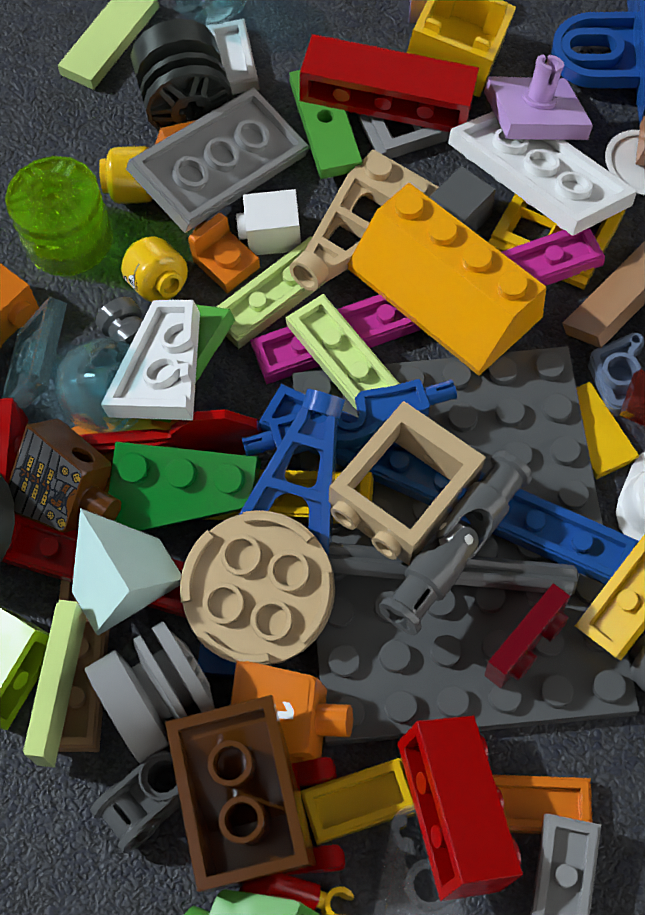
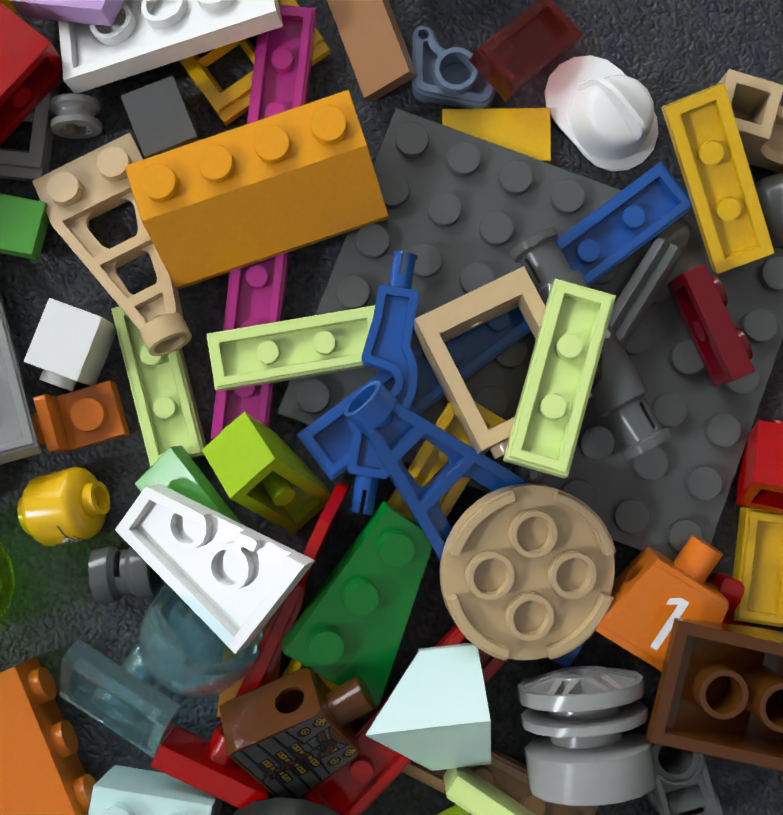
camera: 65 degrees left, 20 degrees up
(243, 372) = (265, 474): none -> lime slope
(412, 512) = (559, 378): none -> yellowish green tile
(434, 152) = (75, 116): none -> light grey bush

